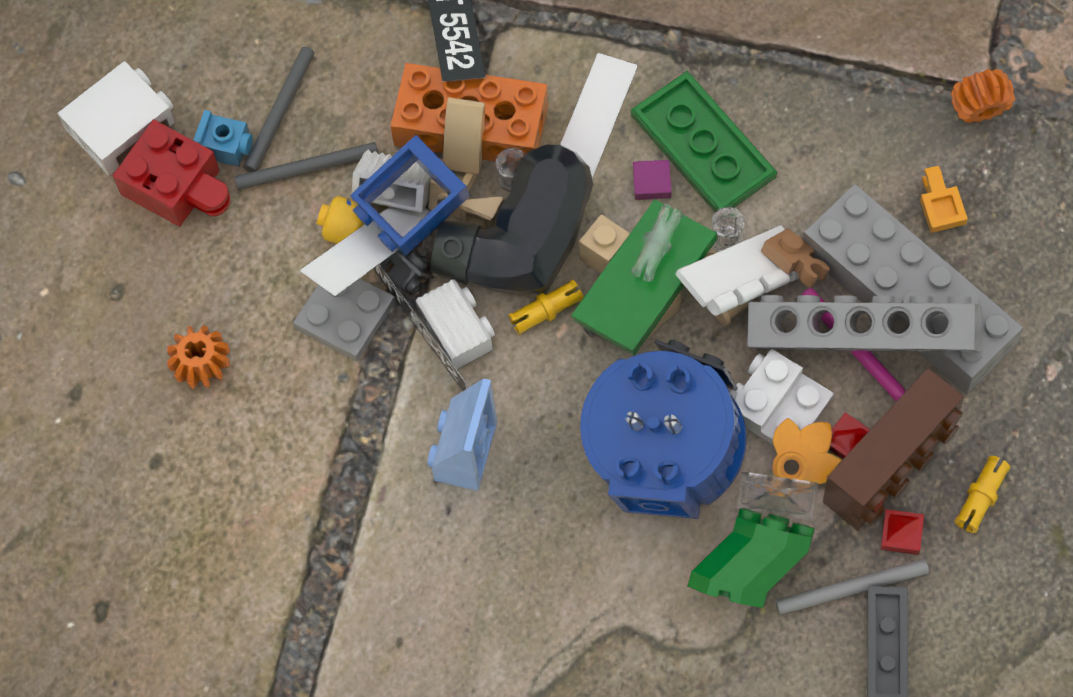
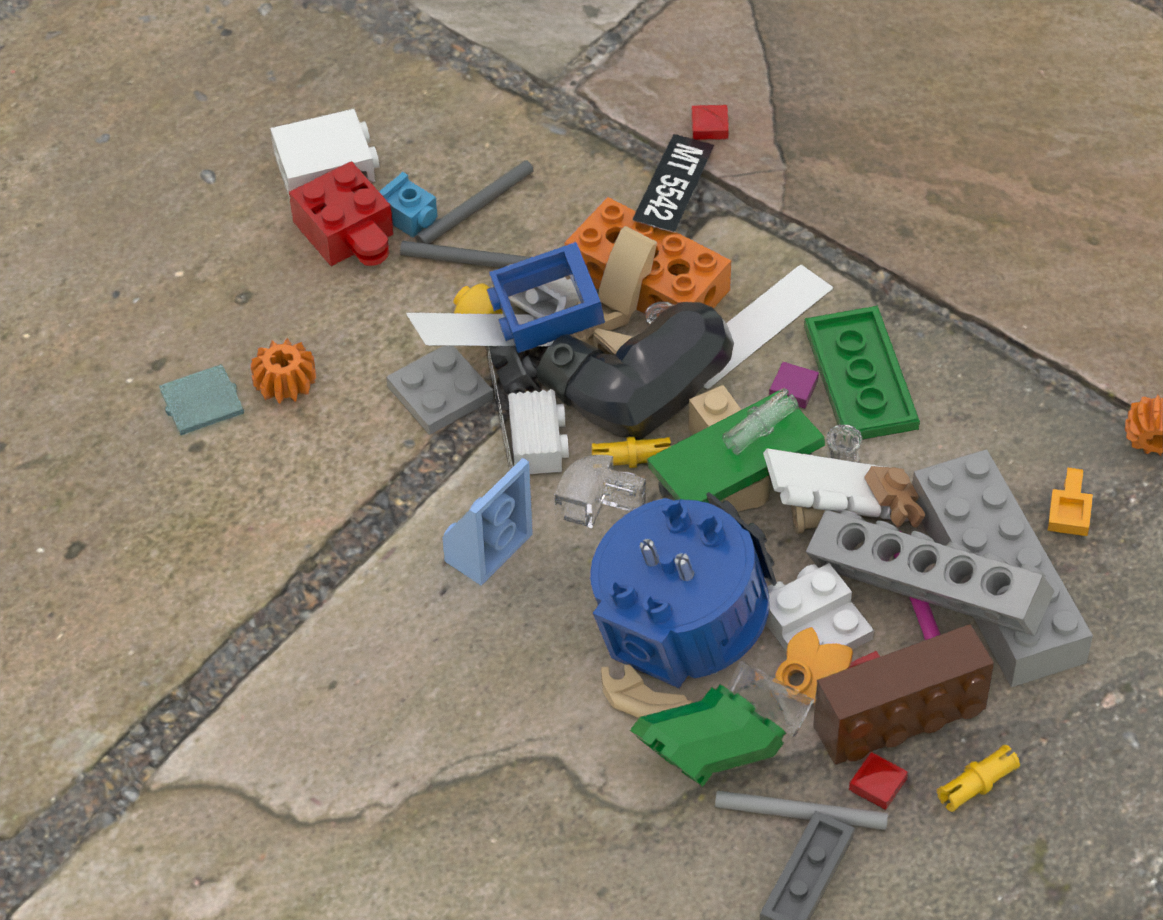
camera: 20 degrees right, 15 degrees down
(135, 413) = (201, 399): none -> clear light blue piece
(529, 353) = (591, 484): none -> clear brick
(670, 544) = (634, 697): none -> tan piece

